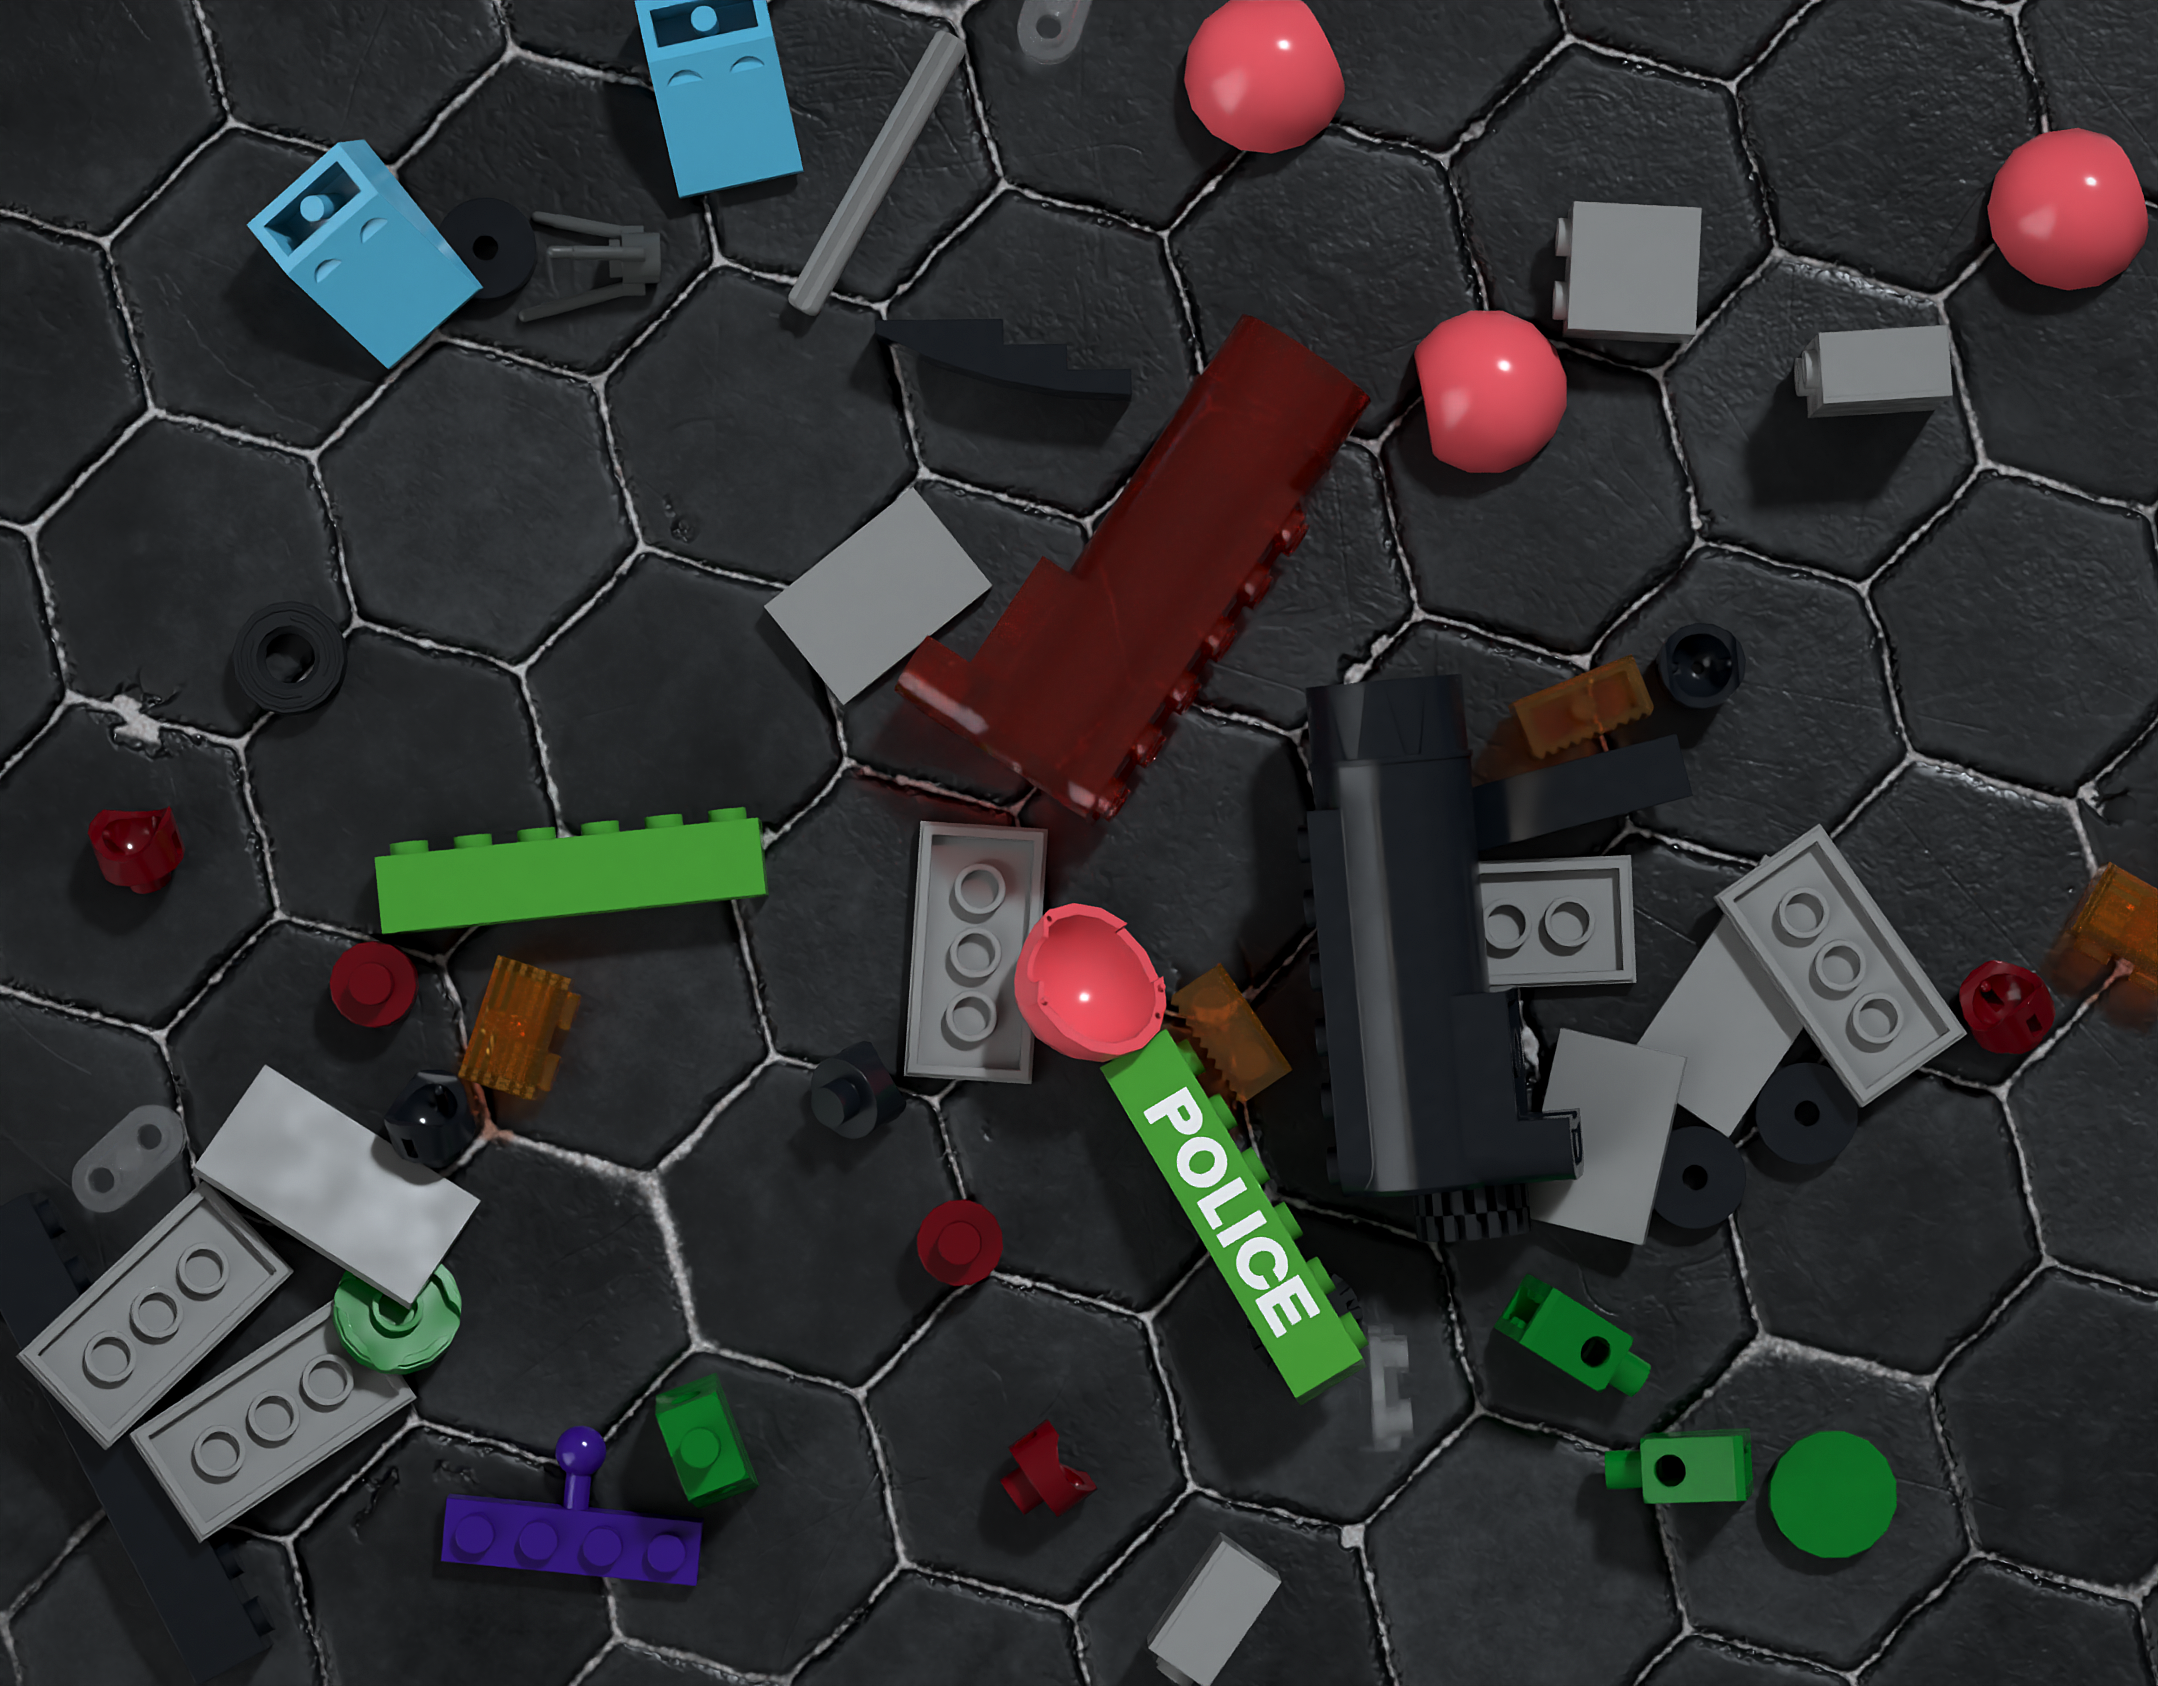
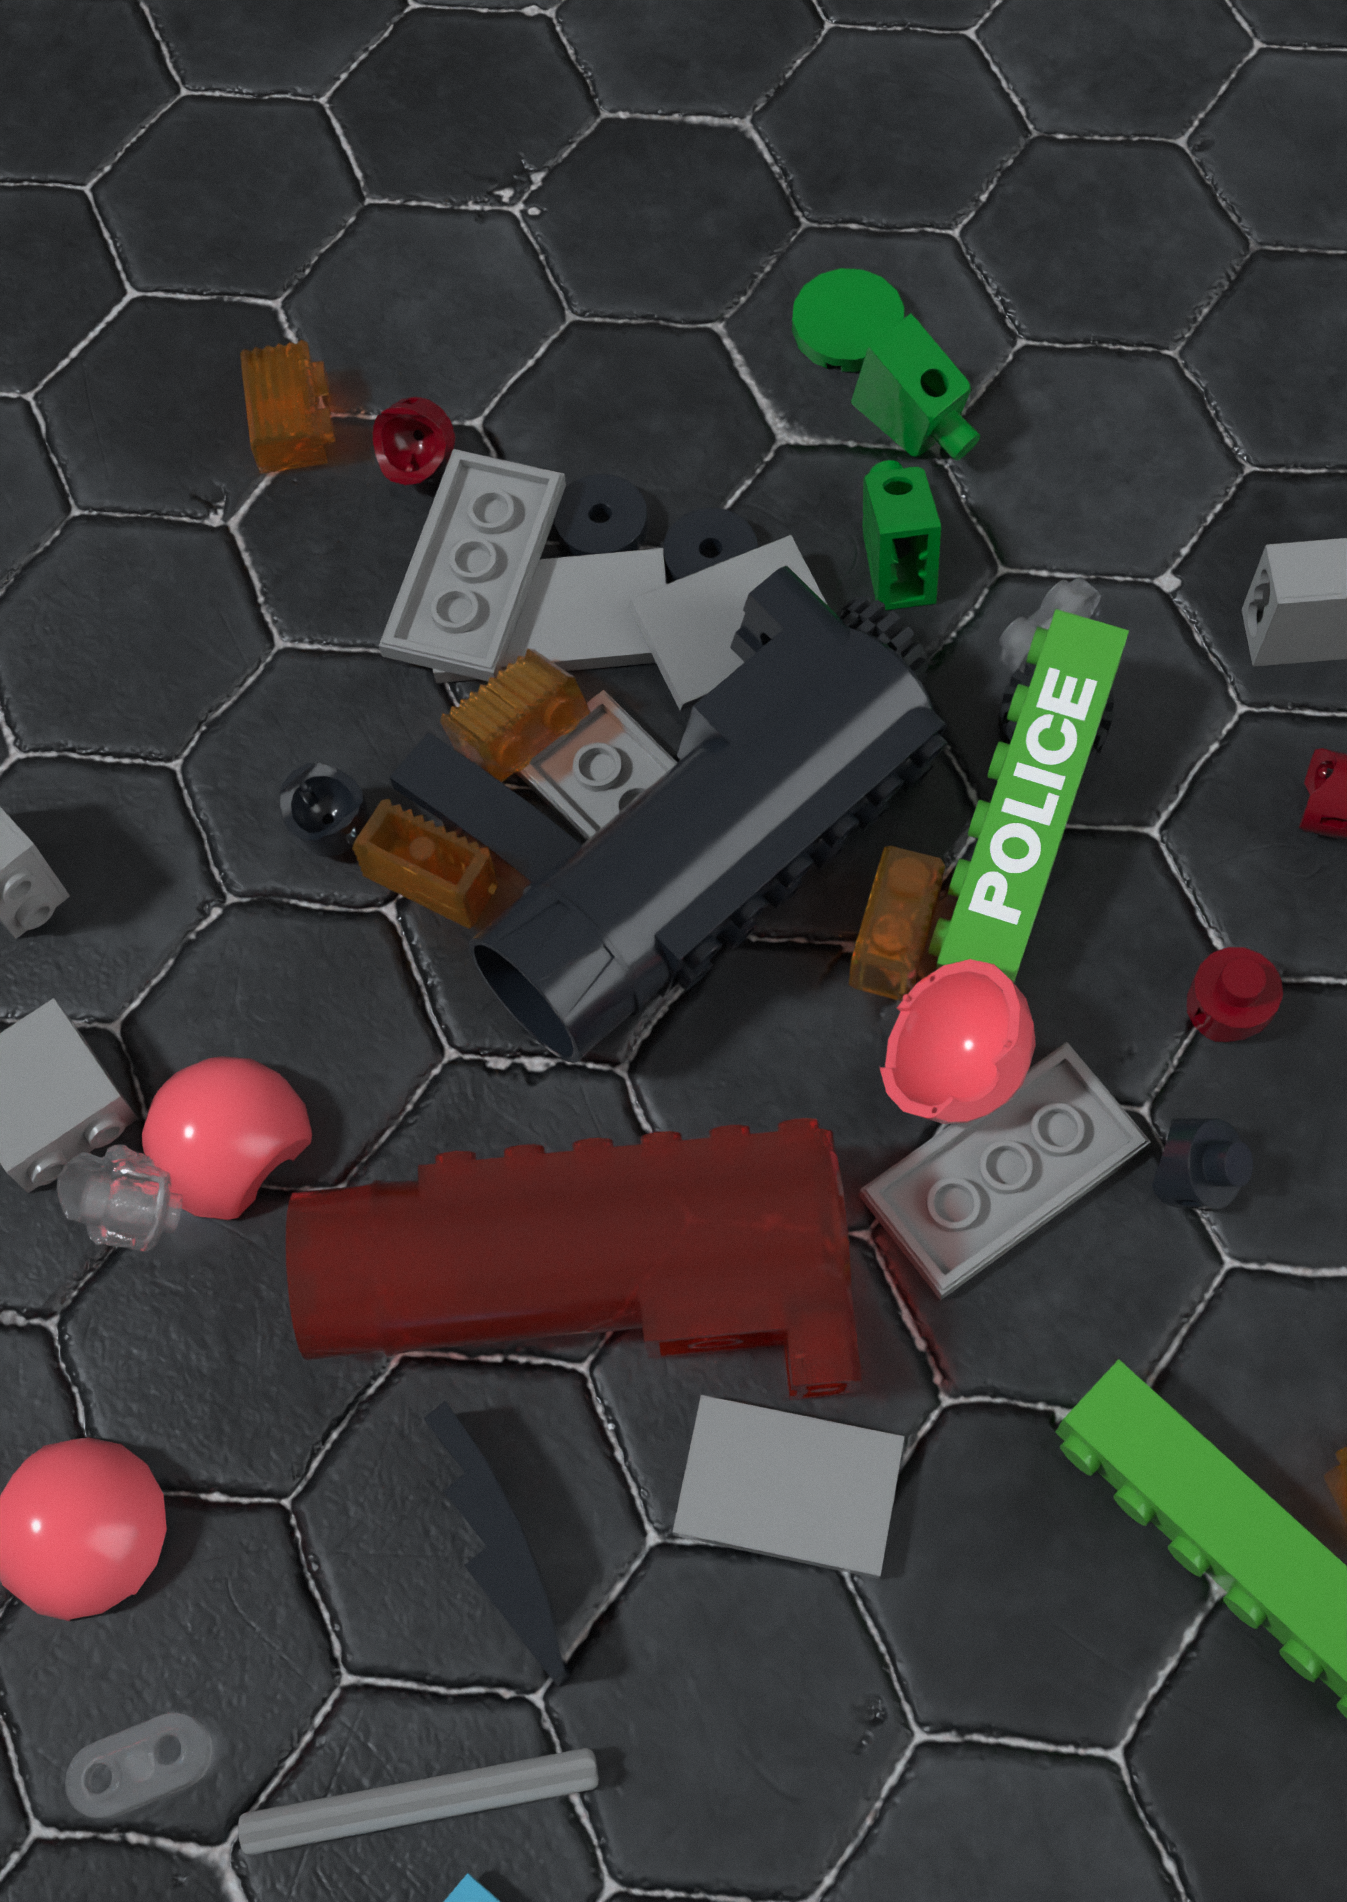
camera: 125 degrees left, 20 degrees down
(1490, 272) = (119, 1198): none -> clear head
(1660, 884) = (516, 715): none -> clear orange brick

